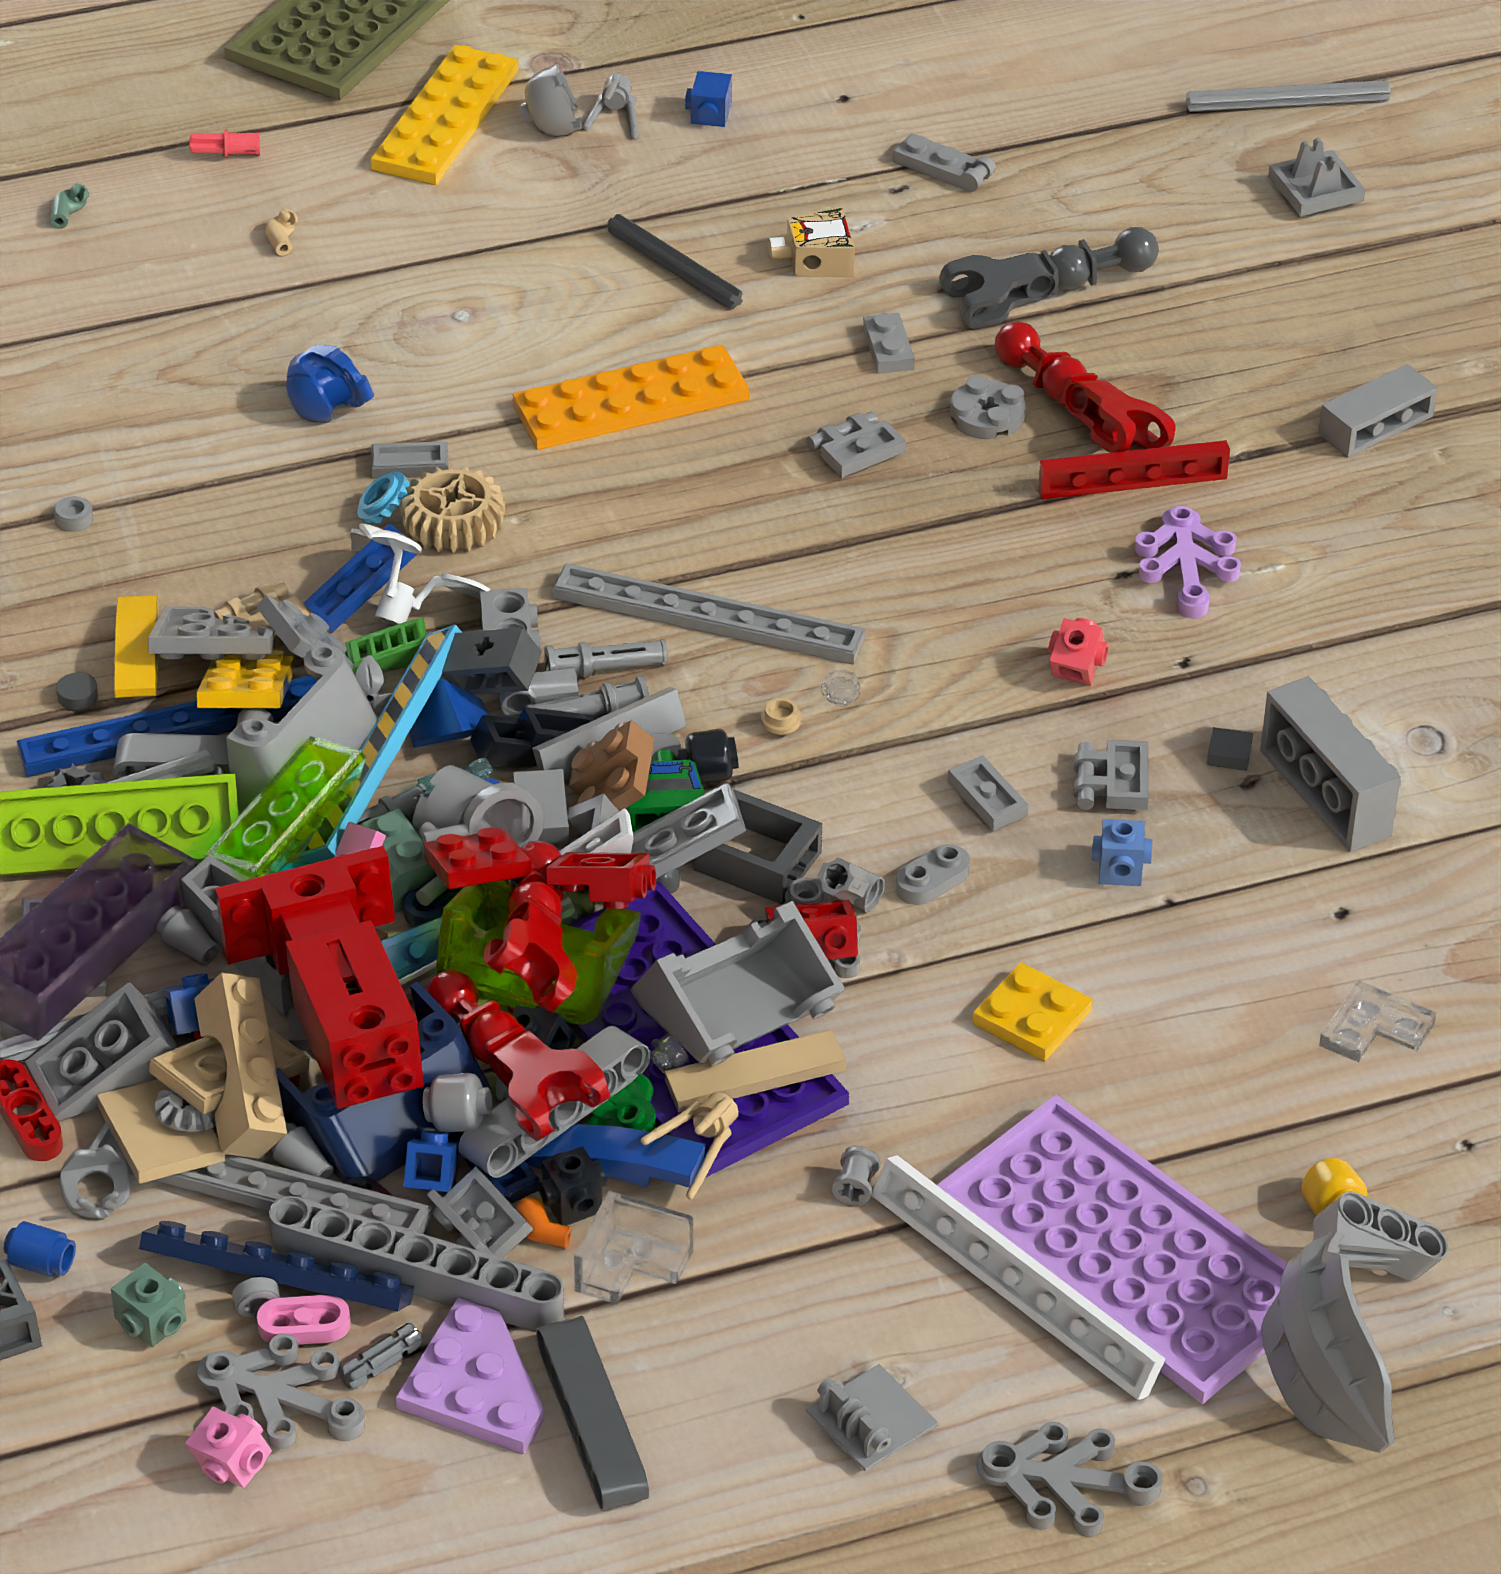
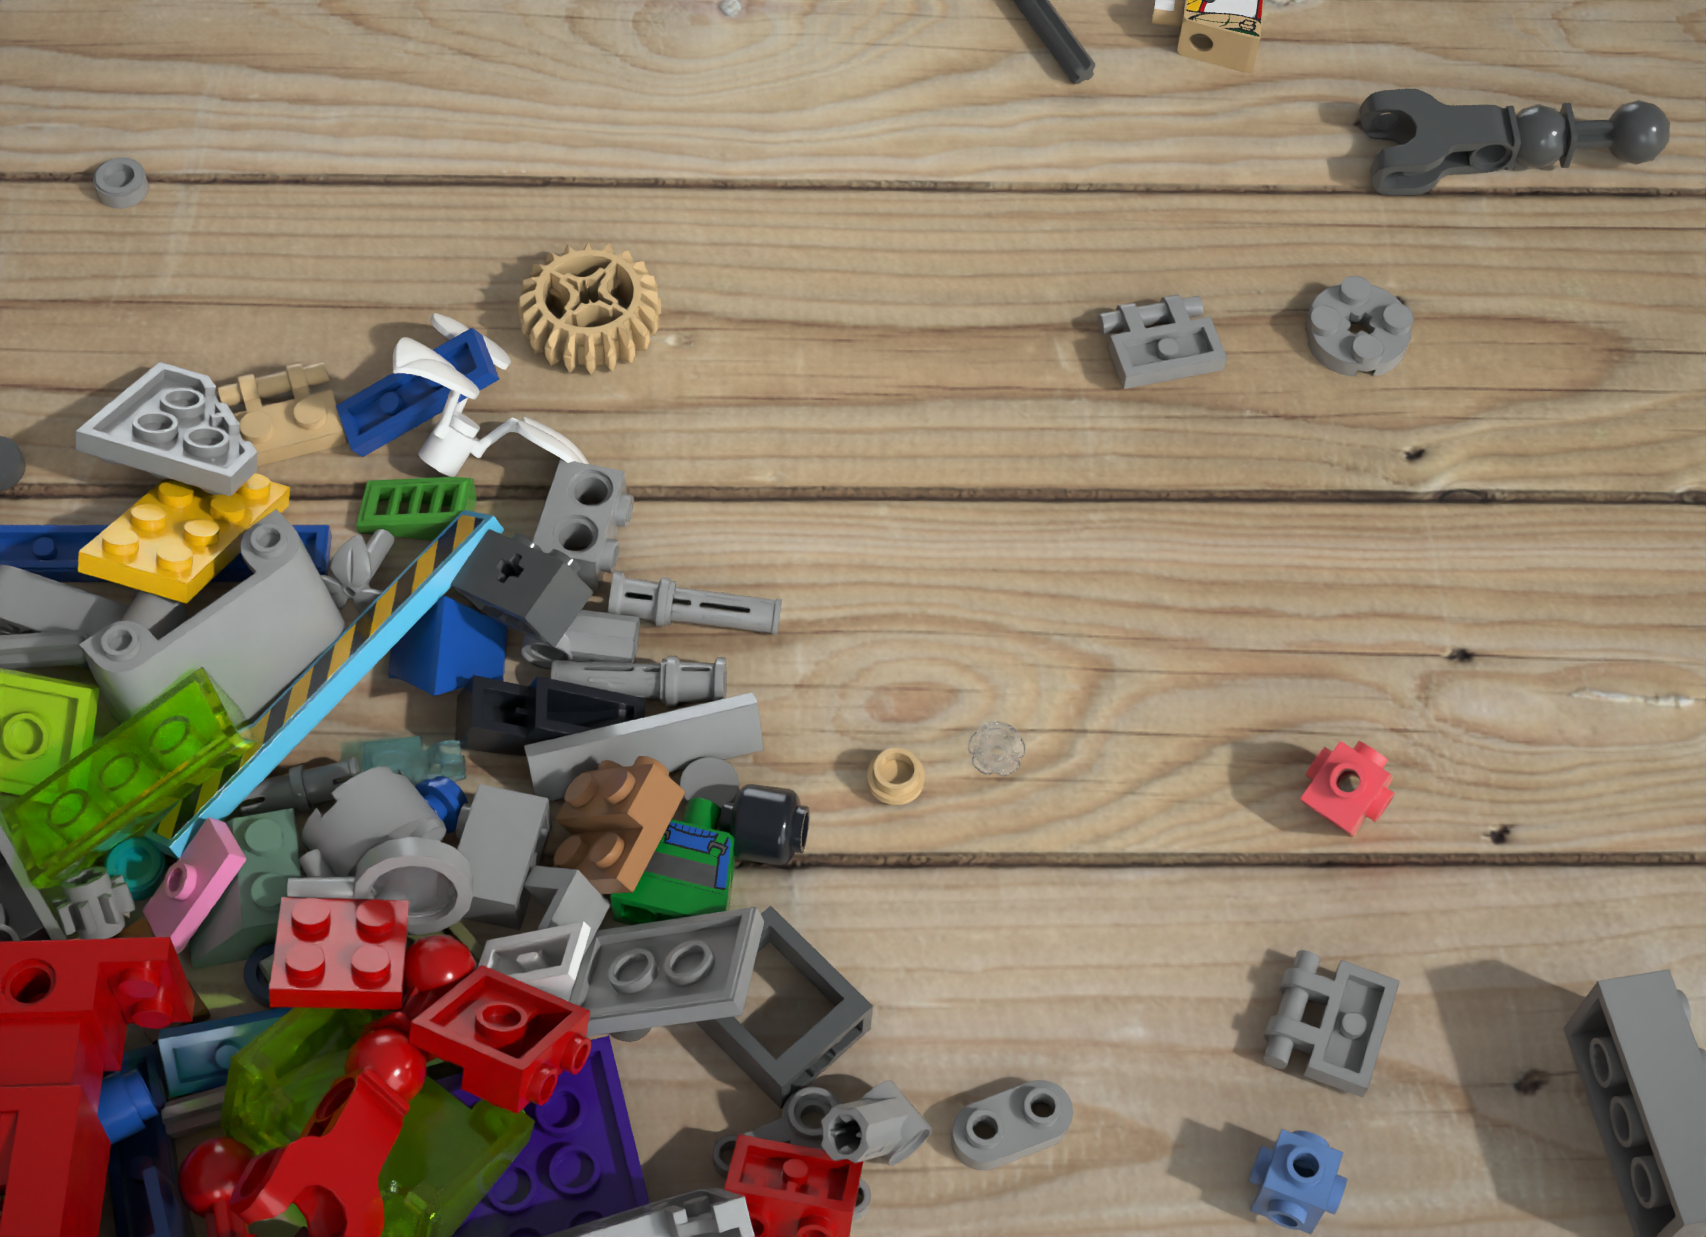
camera: 15 degrees right, 15 degrees up
(134, 667) = (58, 470): yellow slope -> none
(296, 629) = (303, 470): light grey plate -> none
(322, 380) = (500, 68): blue helmet -> none
(382, 497) = (505, 266): medium azure gear -> none
(409, 458) = (573, 211): light grey tile -> none
(630, 397) = (894, 187): light orange plate -> none
(709, 613) = (869, 568): light grey tile -> none
(888, 343) = (1260, 190): light grey plate -> none
(988, 793) = (1139, 1002): light grey plate -> none
(1106, 410) = (1503, 361): red piece -> none
(1133, 469) = (1527, 487): red plate -> none
(1182, 525) = (1560, 650): lavender plant -> none
(1229, 749) = (1519, 1018): dark grey tile -> none

